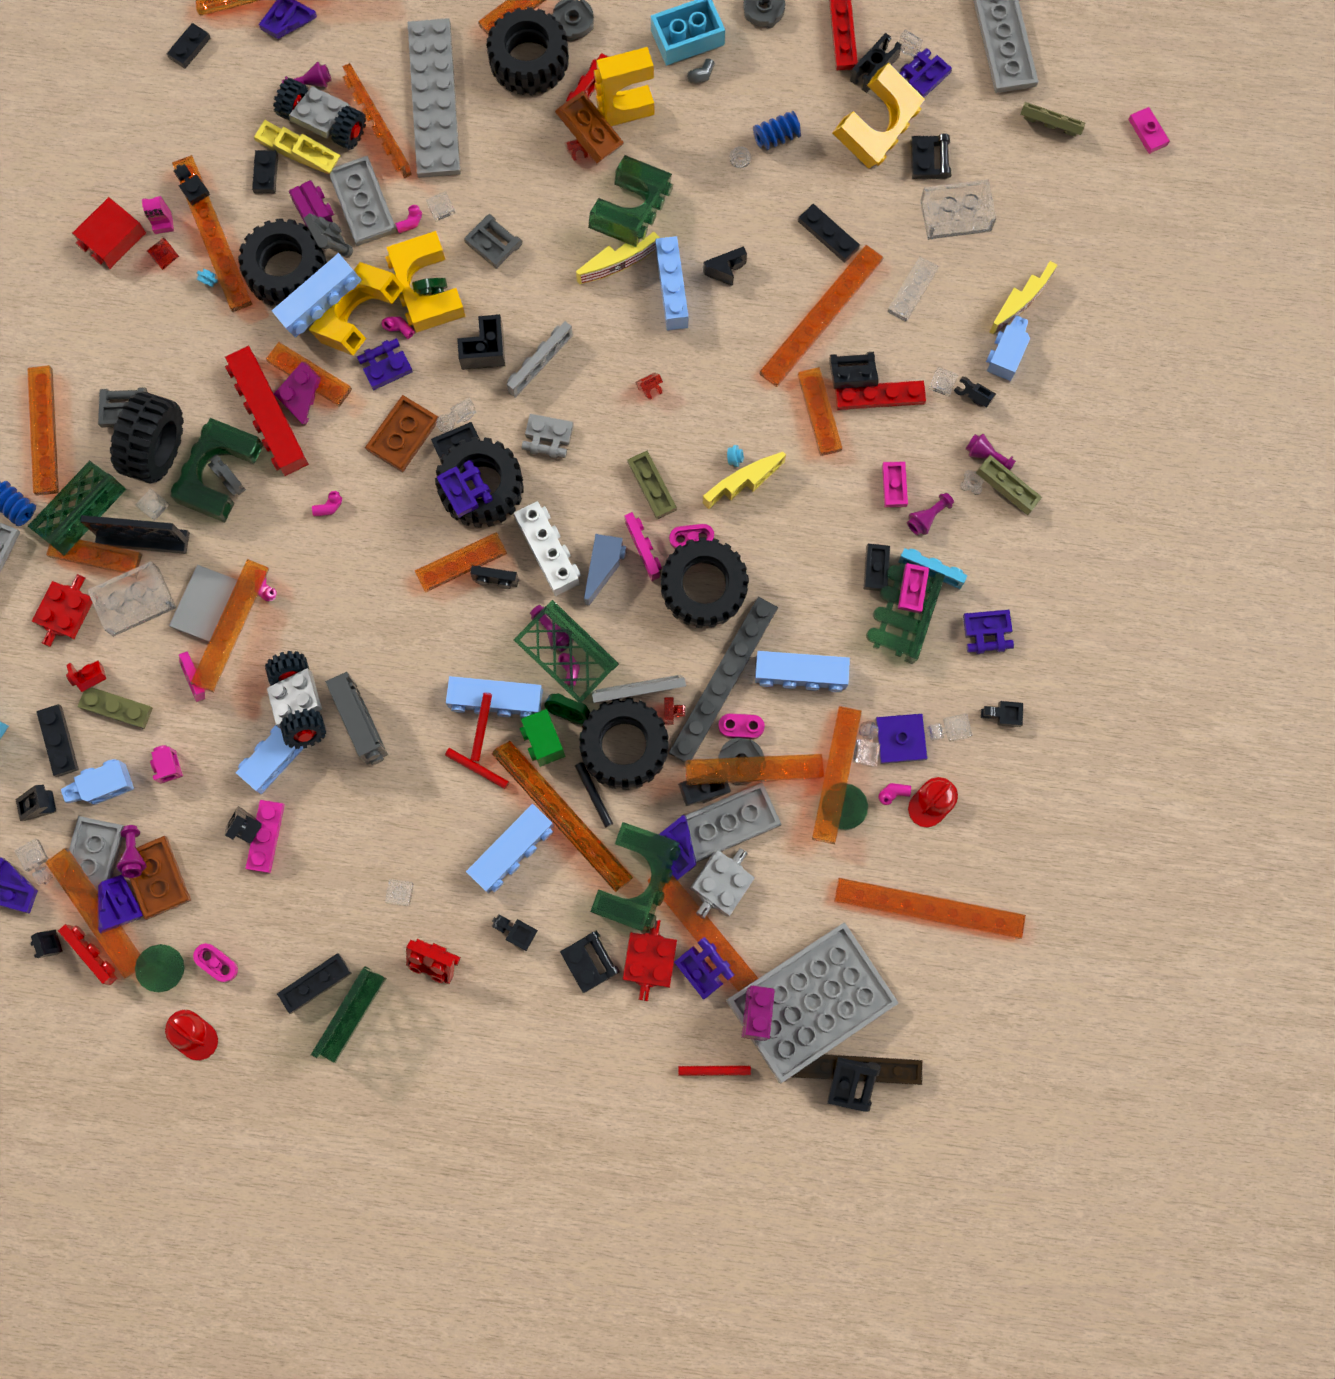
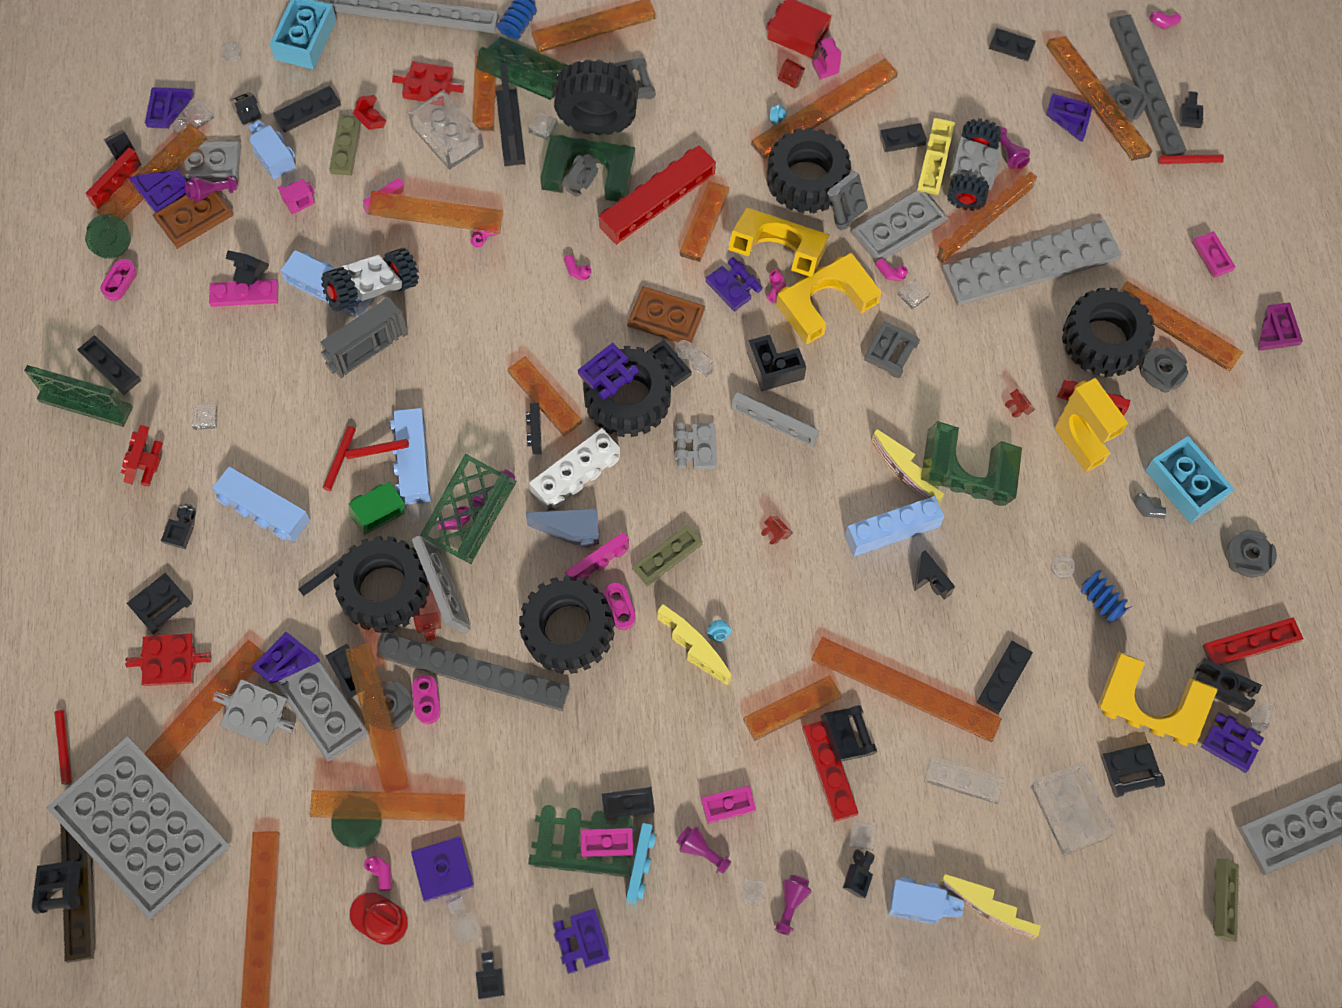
camera: 75 degrees right, 10 degrees down
(191, 1035) = (51, 277): red piece -> none
(192, 188) = (862, 80): black plate -> none
(203, 603) = (458, 187): light grey tile -> none
(299, 391) = (682, 216): magenta wing -> none
(309, 200) = (879, 181): magenta brick -> none
(316, 295) = (780, 203): light blue brick -> none
(430, 286) = (817, 294): dark green plate -> none
(562, 816) = (300, 546): clear orange plate -> none
(567, 709) = (414, 517): dark green plate -> none
(589, 127) = (1040, 406): dark orange tile -> none
(640, 910) = (270, 640): clear green arch -> none
(699, 972) = (157, 710): dark purple plate -> none
(758, 1013) = (111, 765): magenta brick -> none
(802, 670) = (496, 747): light blue brick -> none
(866, 751) = (419, 832): clear plate -> none
(1008, 485) = (757, 931): olive plate -> none

